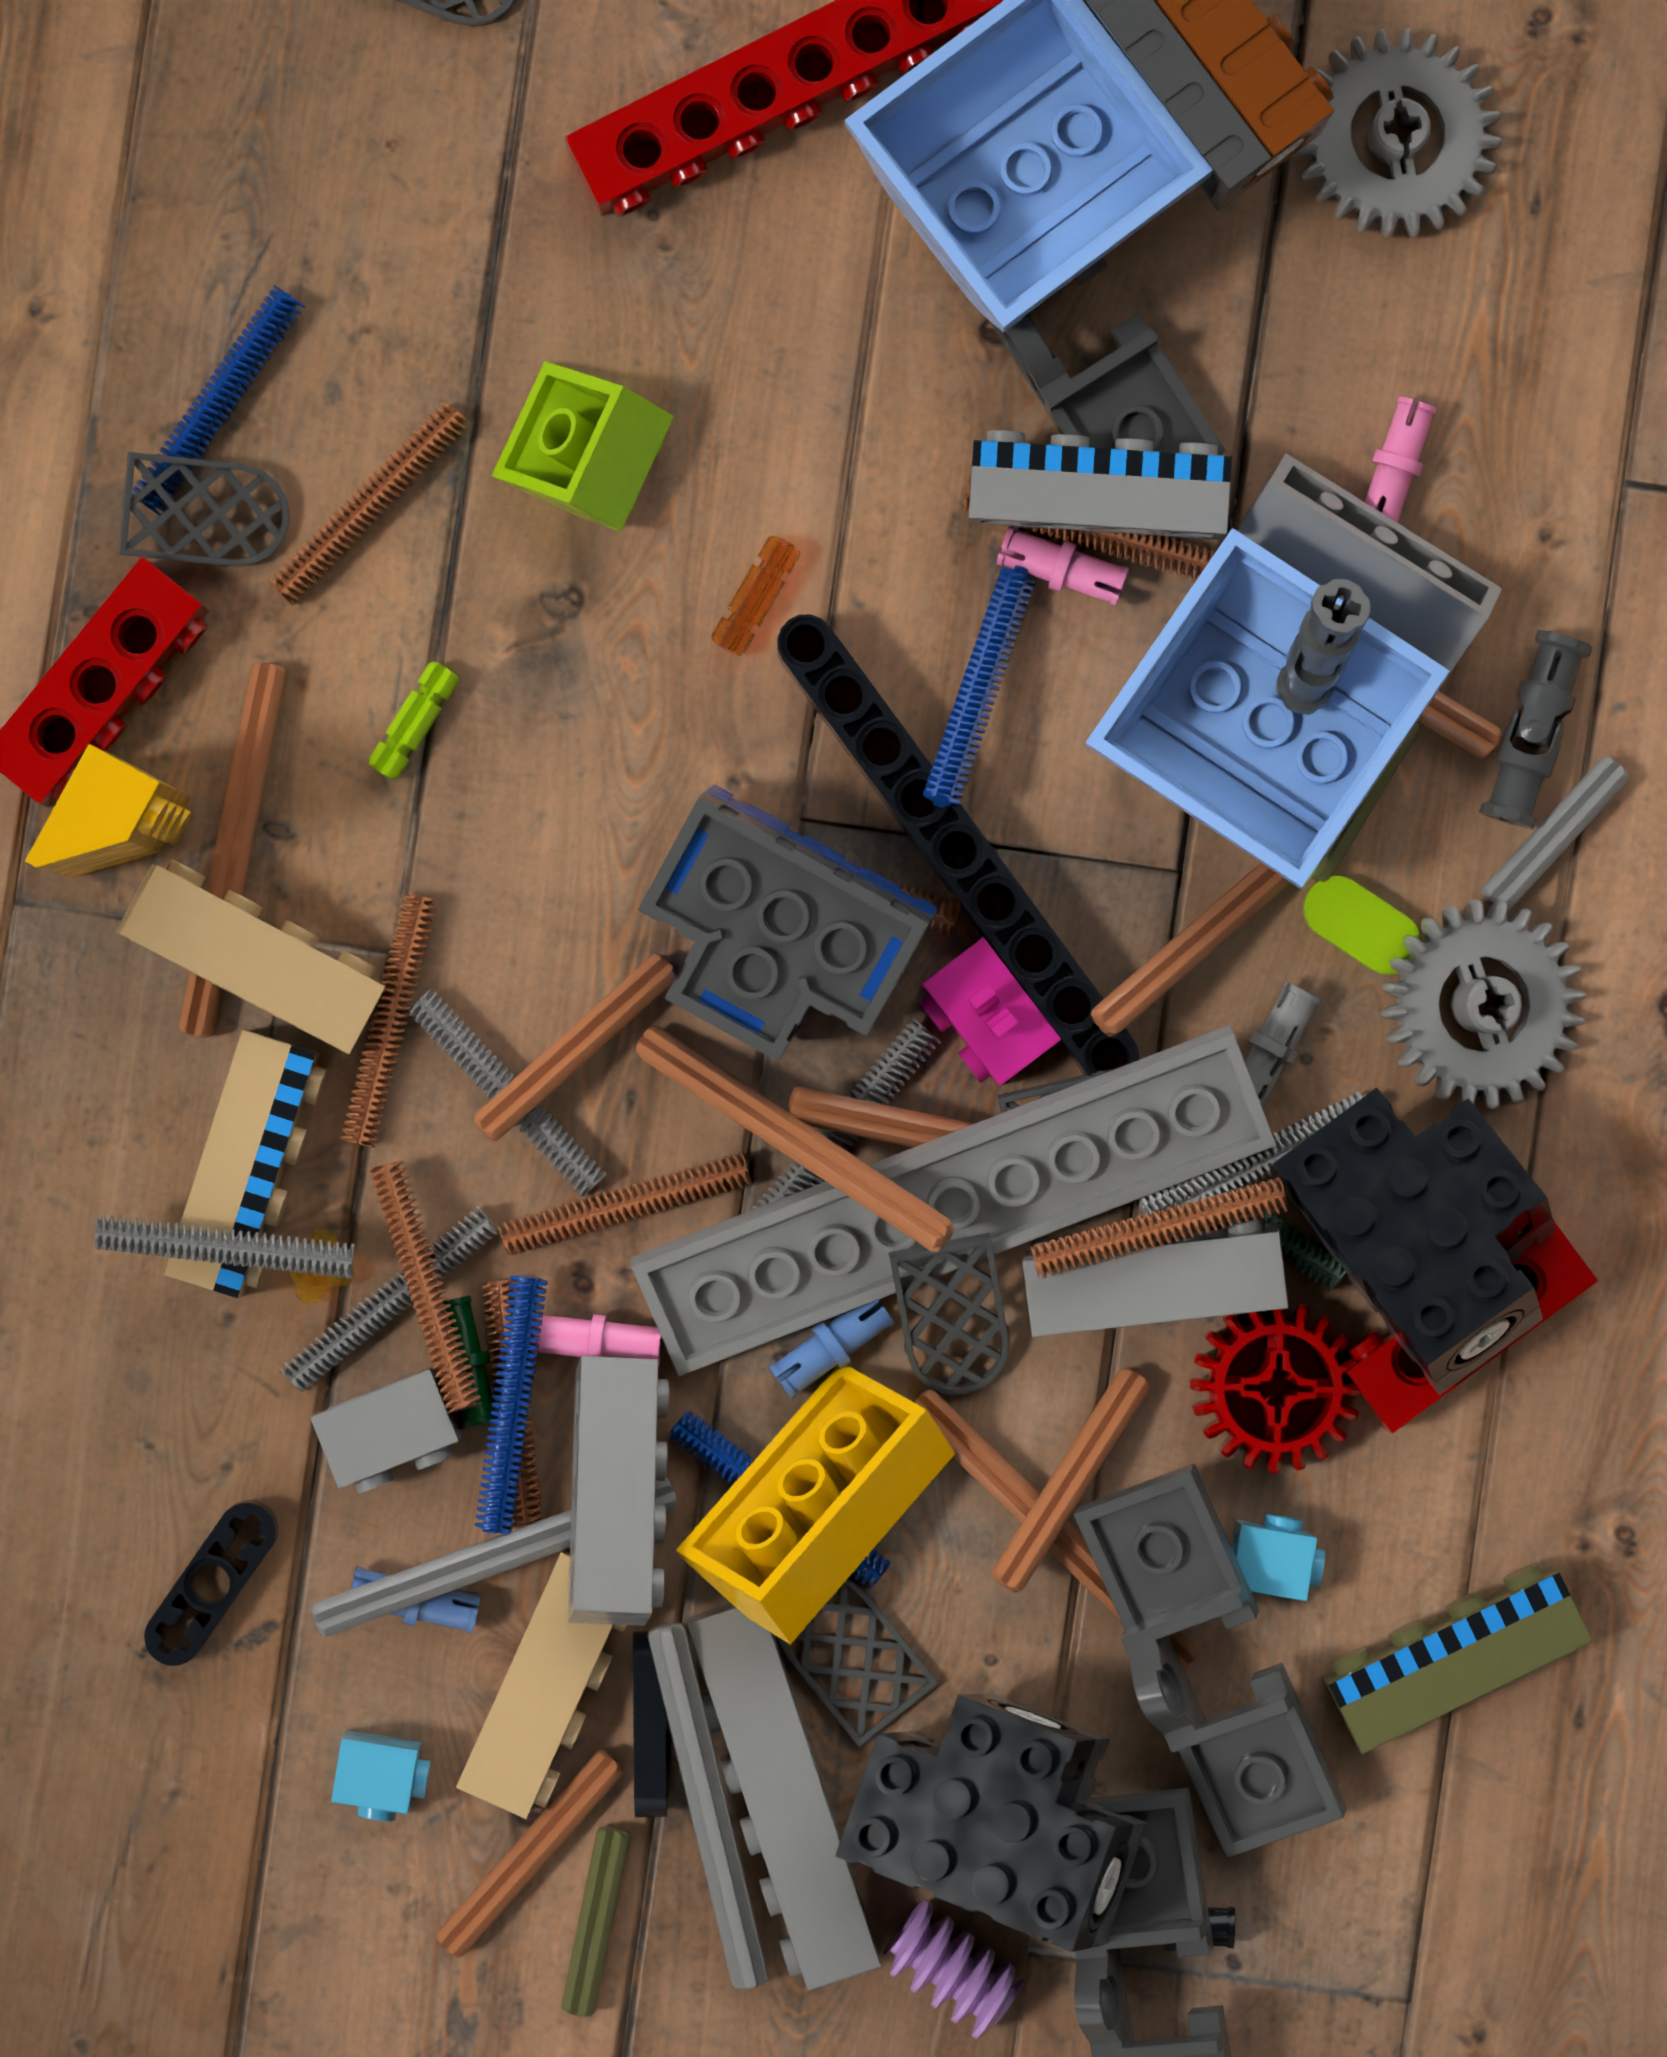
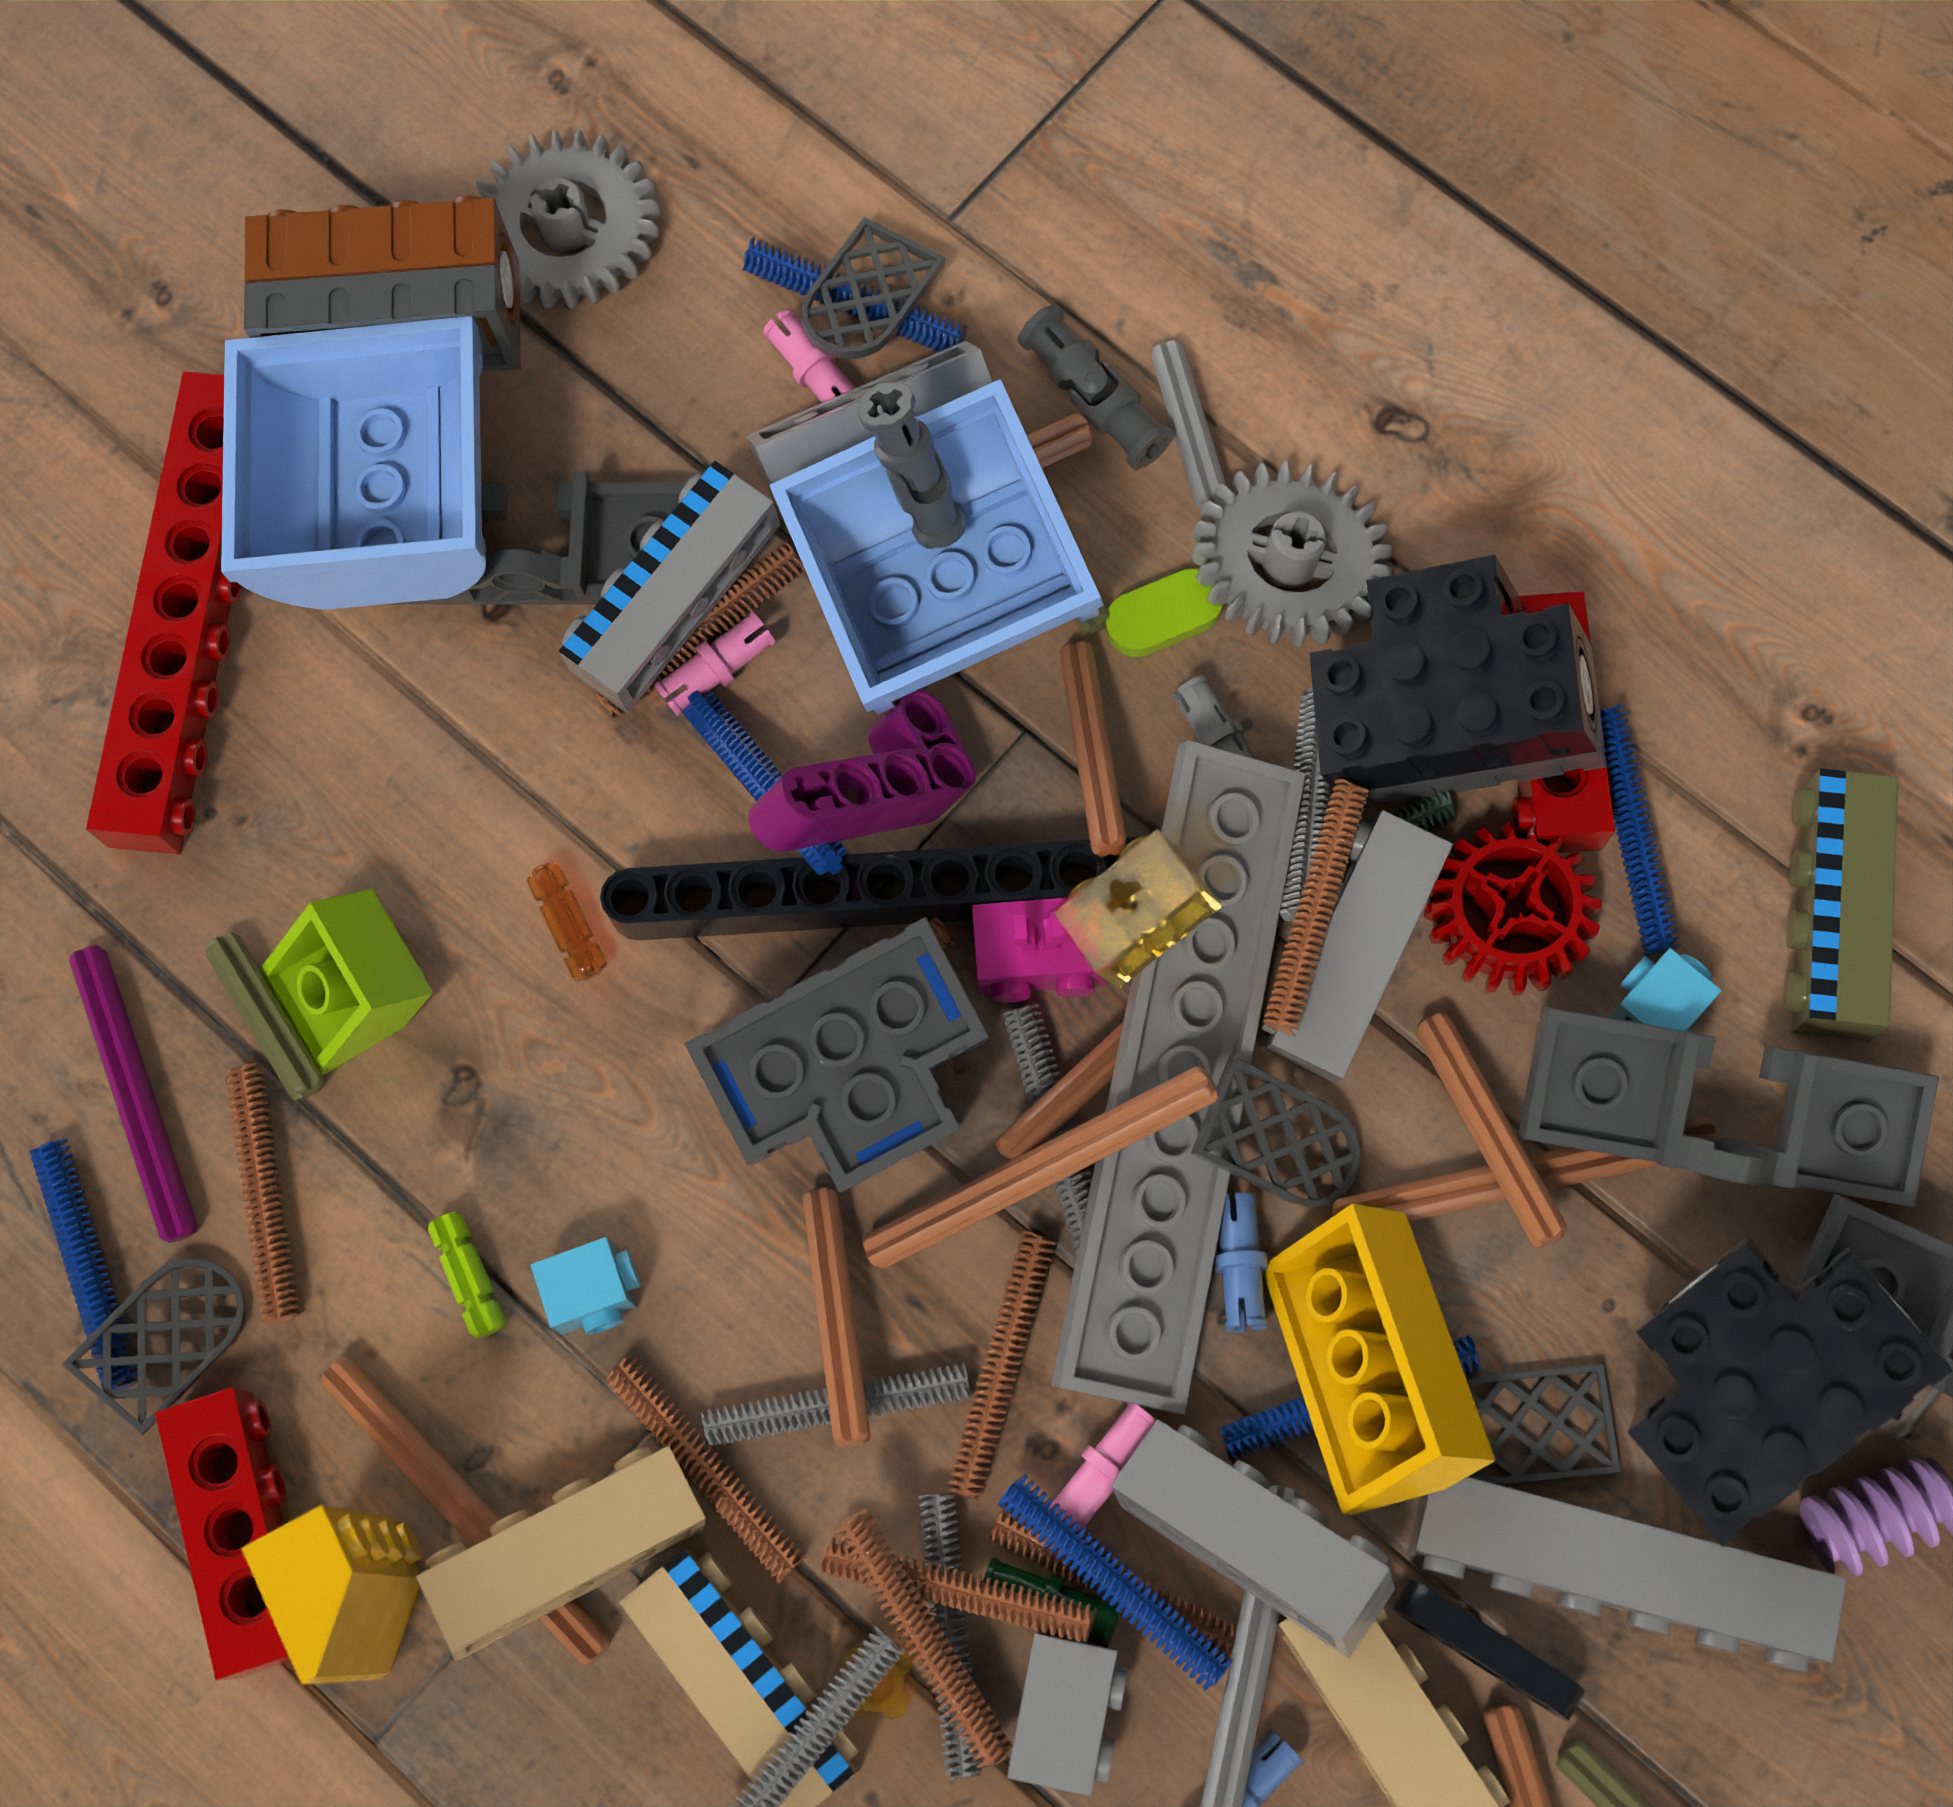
camera: 50 degrees left, 15 degrees down
(372, 1286) = (925, 1637): none -> nougat axle
(378, 332) = (133, 1094): none -> magenta axle
(467, 830) = (587, 1287): none -> medium azure brick
(512, 396) = (264, 1016): none -> olive axle
(708, 1805) = (1599, 1643): light grey axle -> none
(1071, 817) = (906, 782): none -> magenta beam
(1077, 1111) = (1126, 939): none -> clear yellow brick
(1415, 1446) = (1635, 837): none -> blue axle
(1488, 452) = (801, 278): none -> blue axle
(1565, 462) = (932, 261): none -> dark grey window

